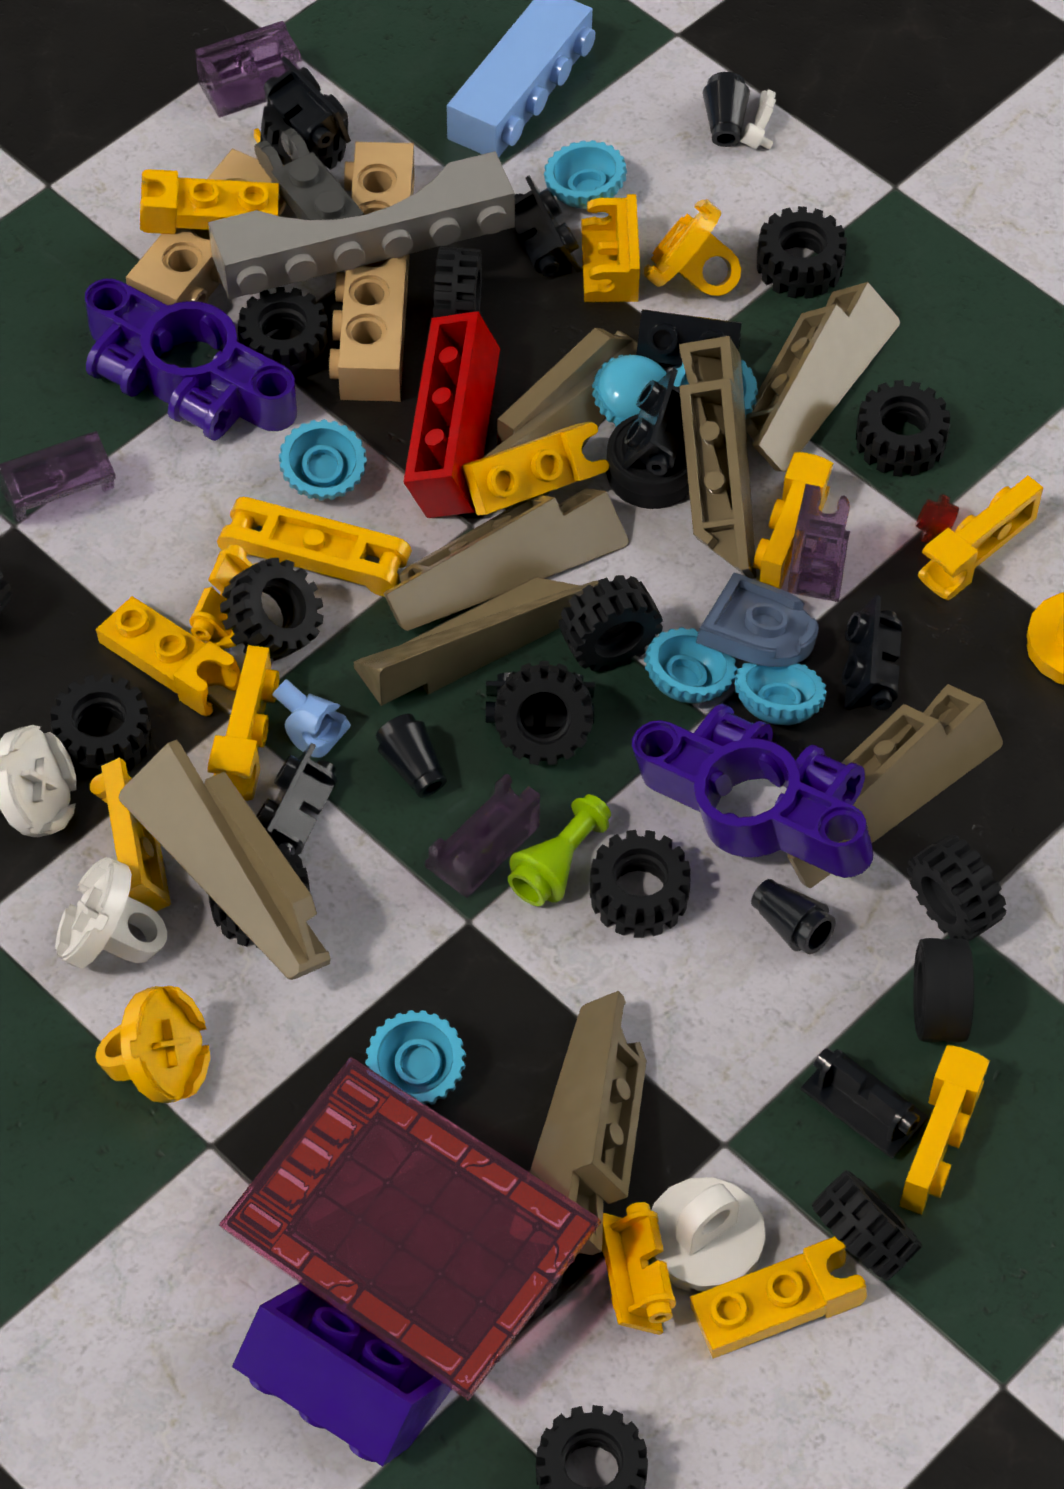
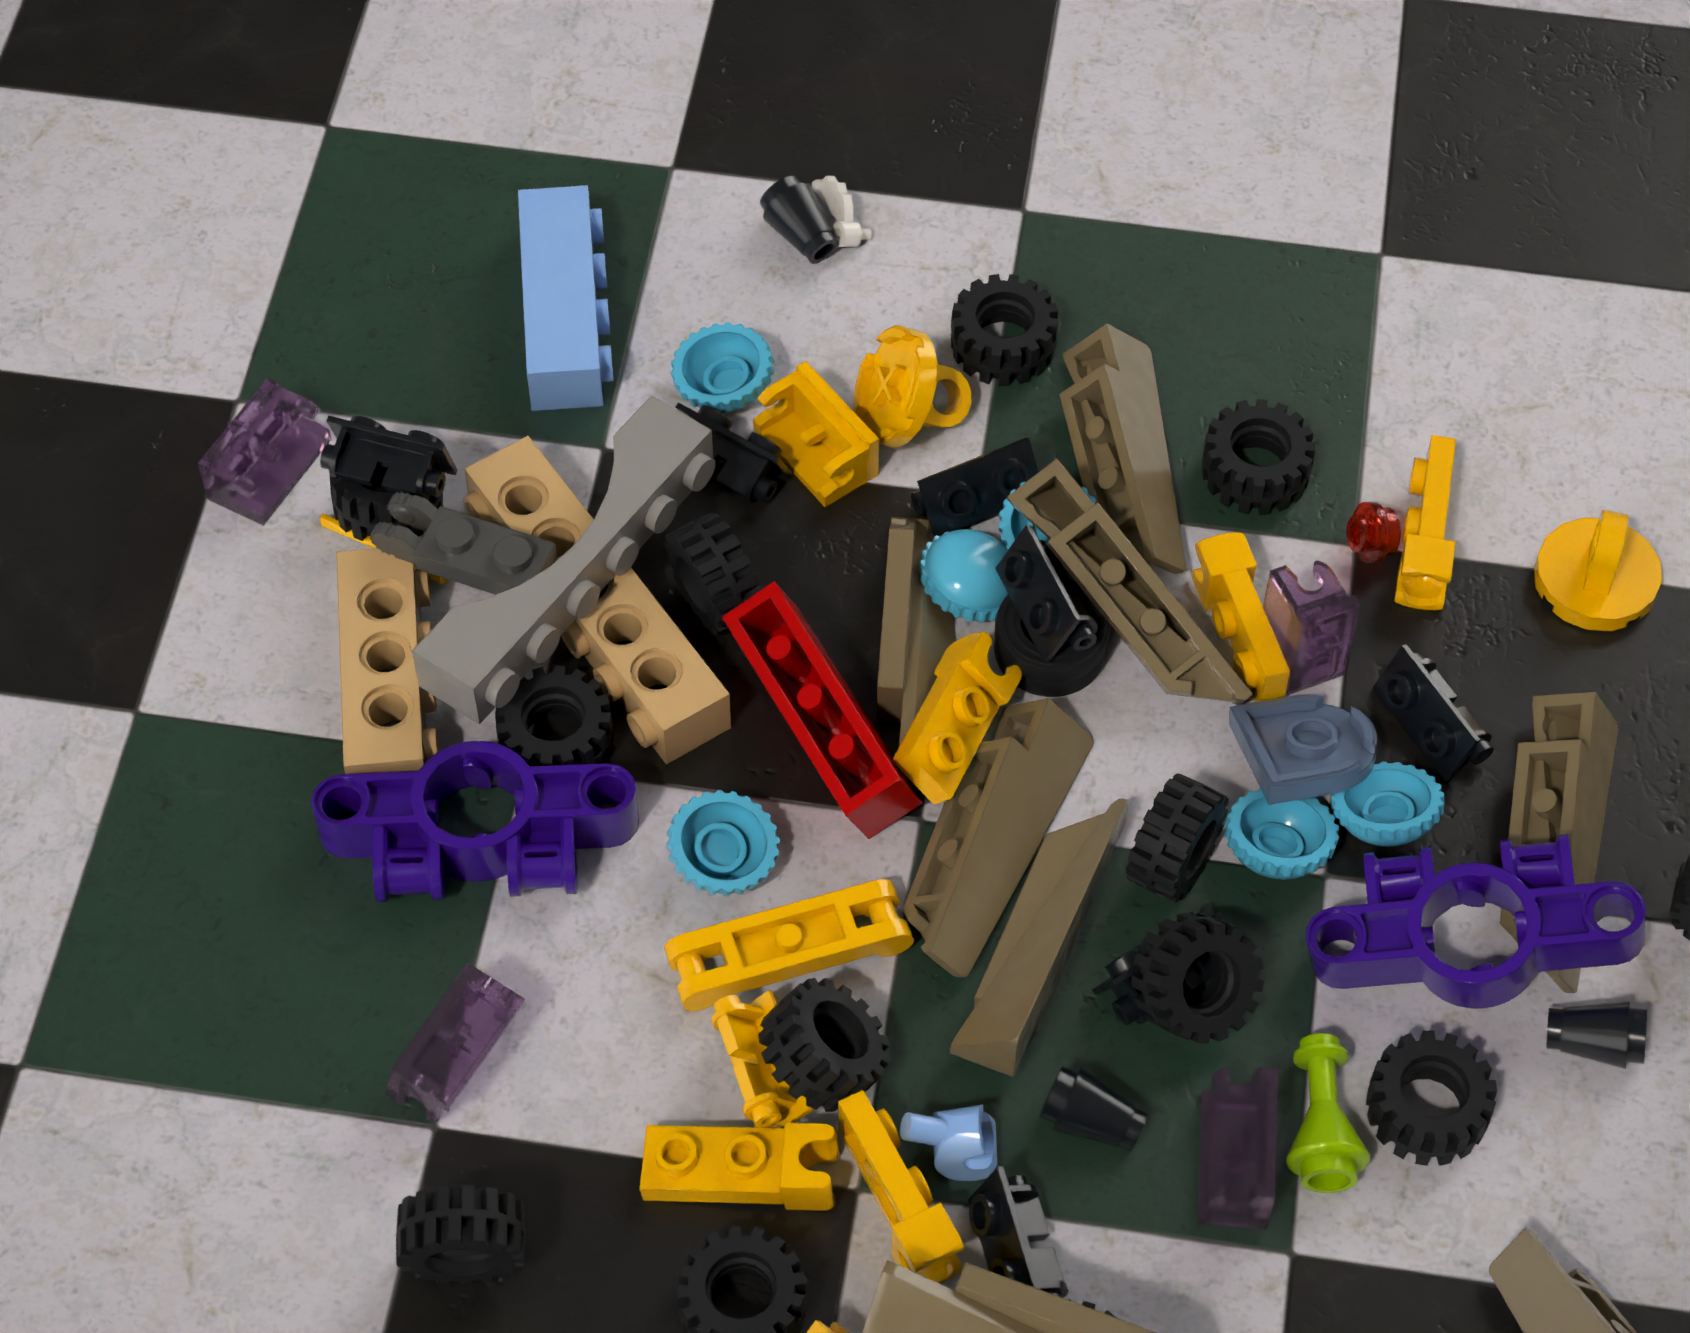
camera: 35 degrees left, 0 degrees up
(193, 202) = (368, 631): yellow plate -> none

